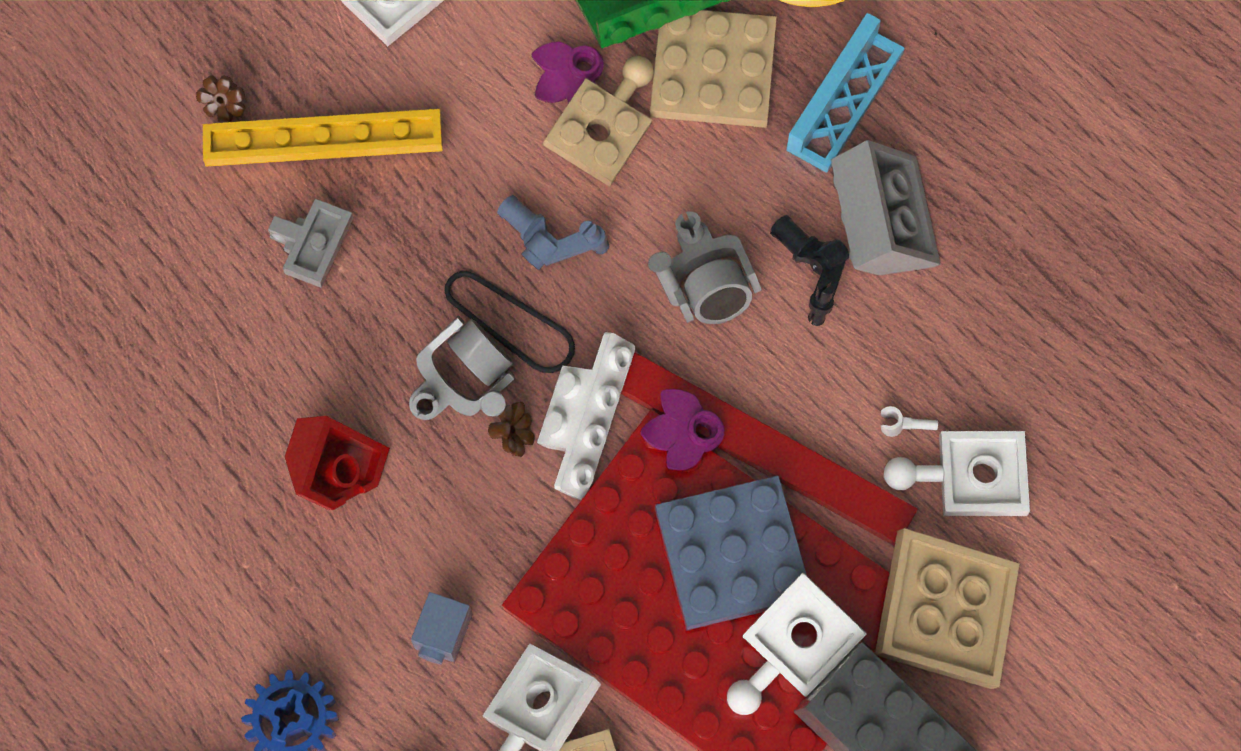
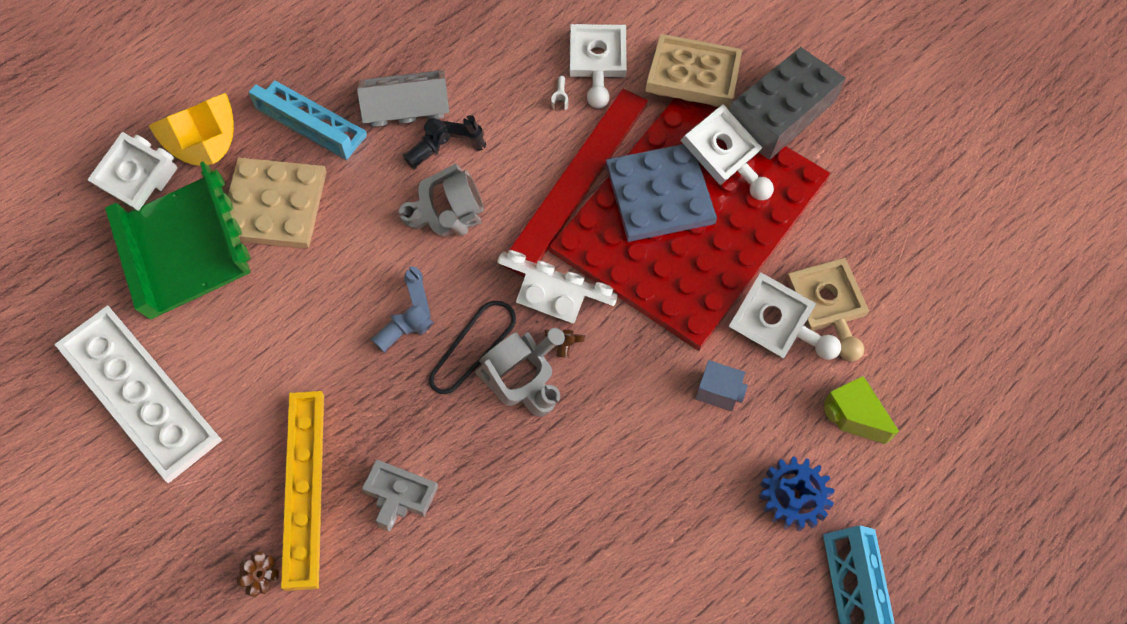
camera: 90 degrees left, 5 degrees down
(332, 461) = (592, 469): red slope -> none
(561, 72) = (268, 306): magenta plate -> none
(596, 106) = (315, 262): tan plate -> none
(677, 429) = (569, 224): magenta plate -> none

